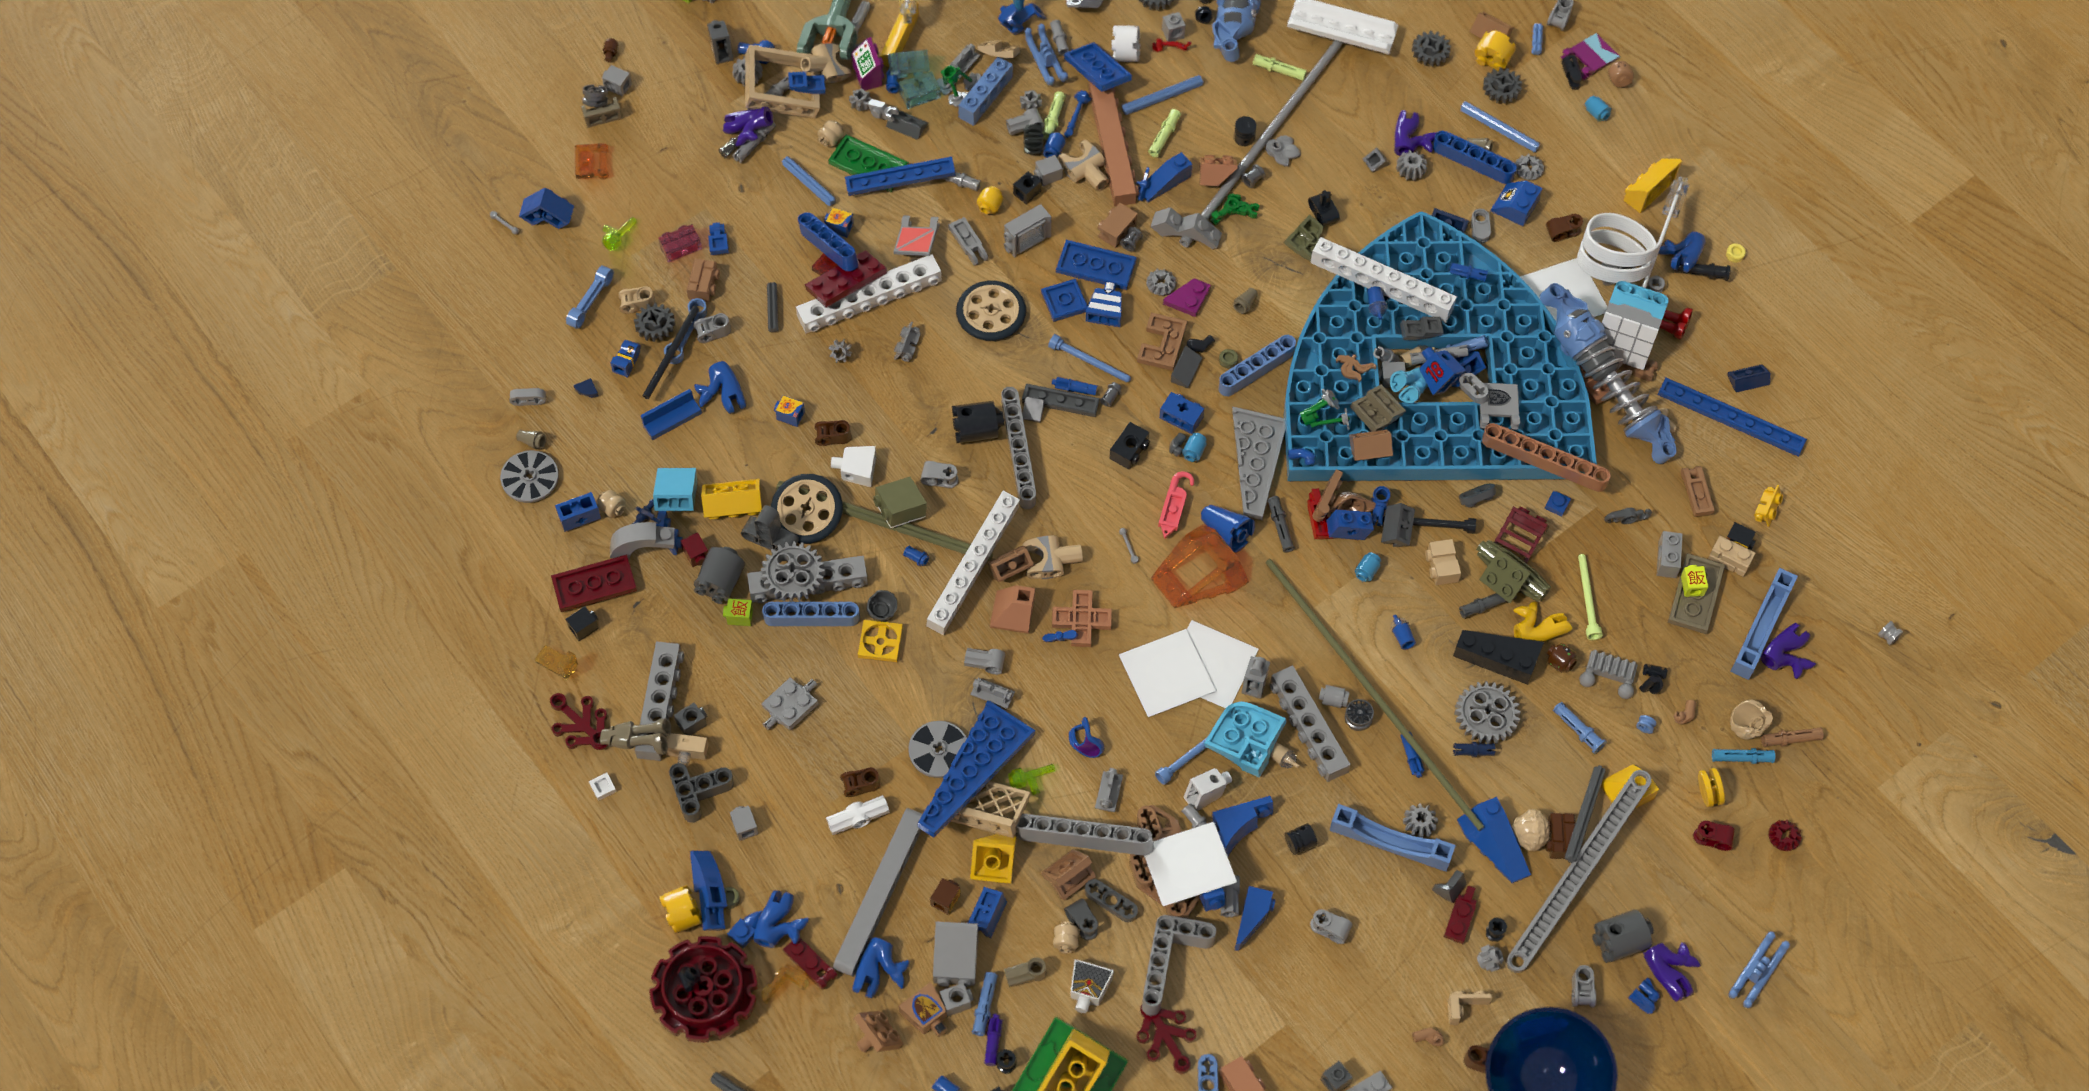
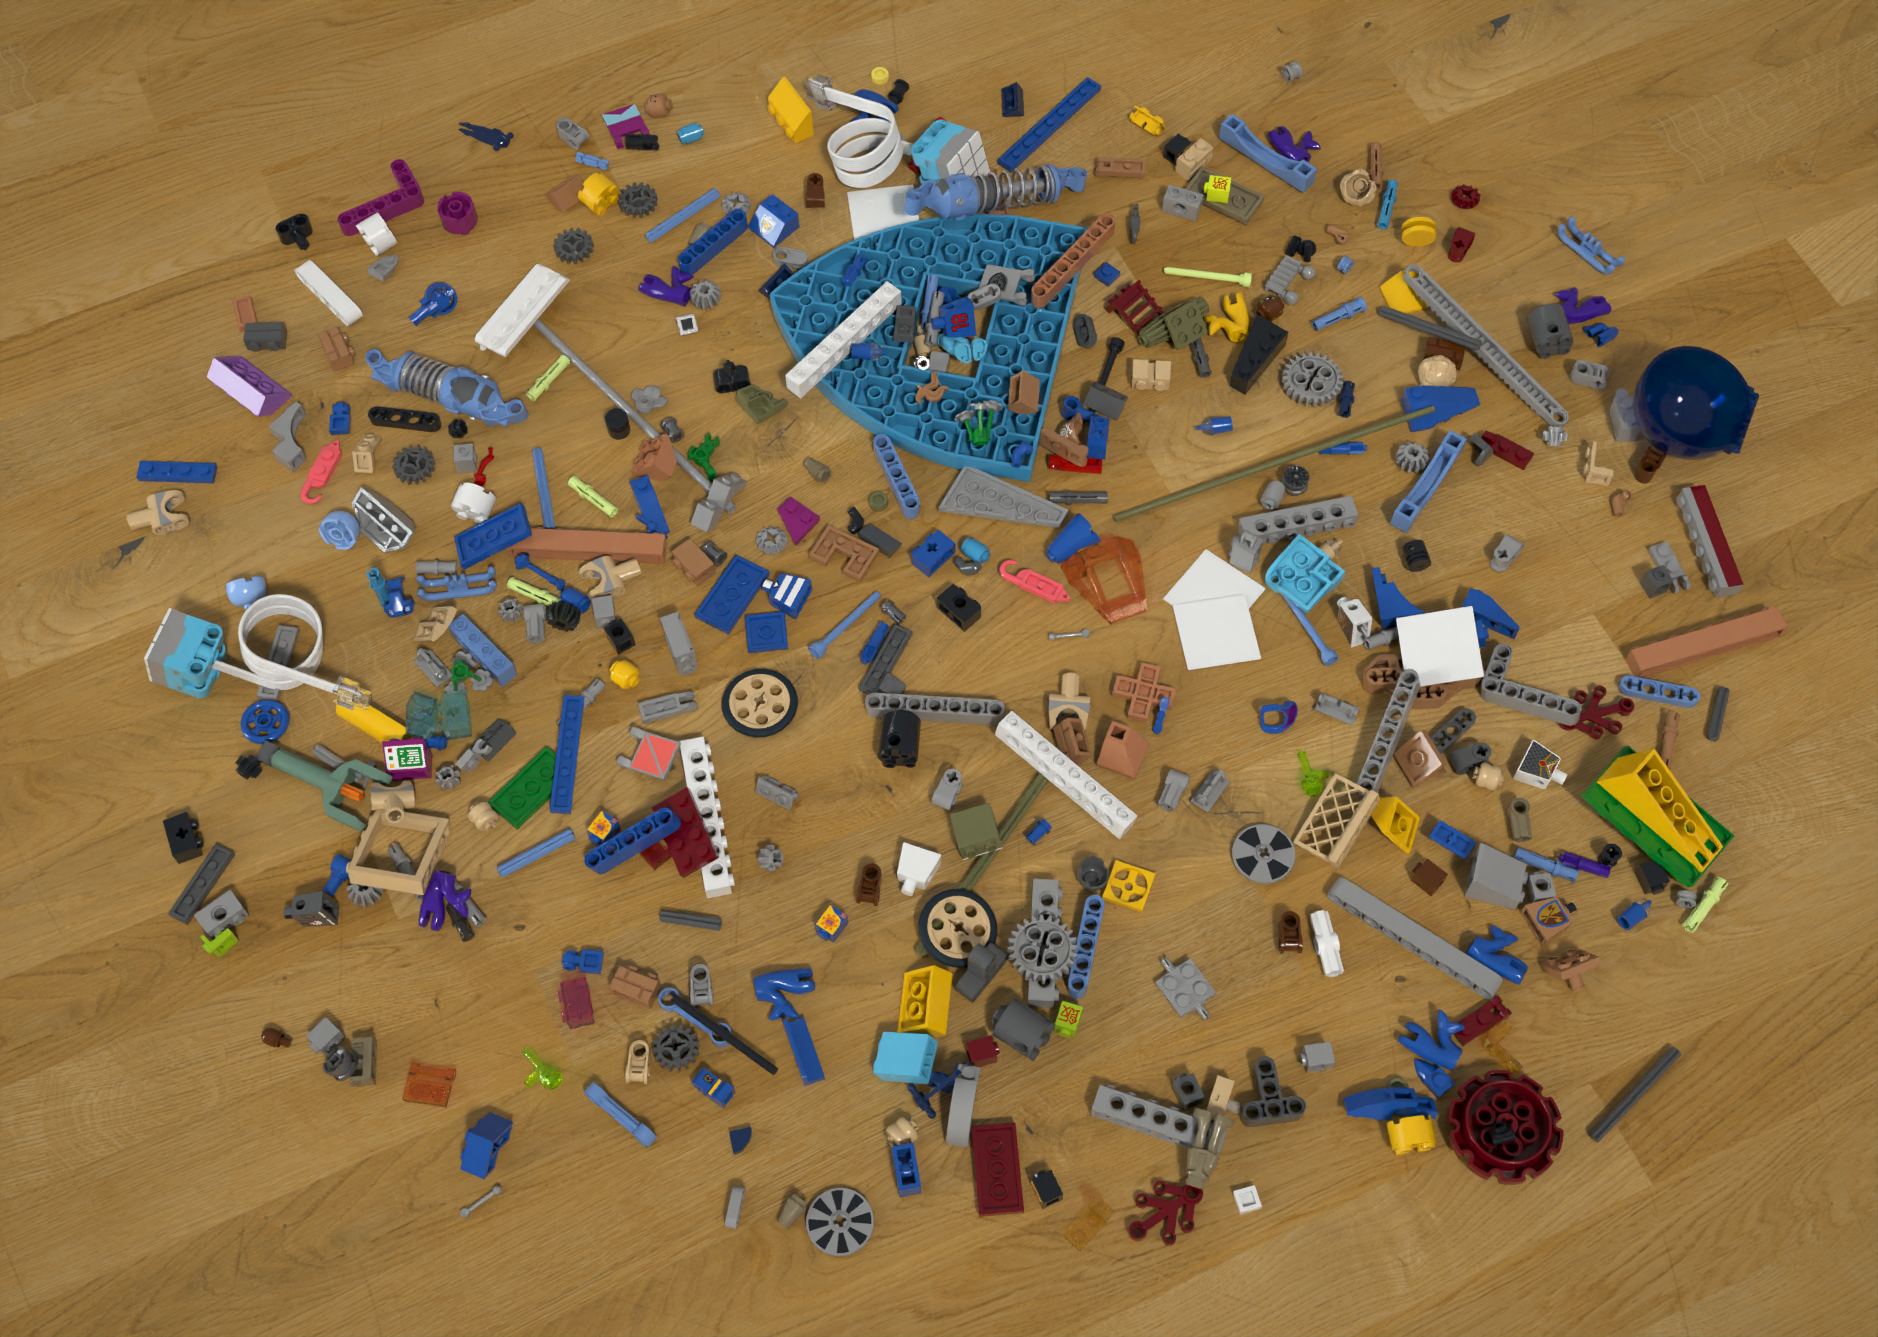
camera: 75 degrees left, 0 degrees up
(806, 84) = (415, 822): blue slope -> none
(986, 751) = (1282, 807): blue wing -> none
(1368, 567) = (1142, 436): dark azure brick -> none
(1377, 408) = (984, 380): dark tan slope -> none
(1494, 924) = (1527, 424): black bush -> none

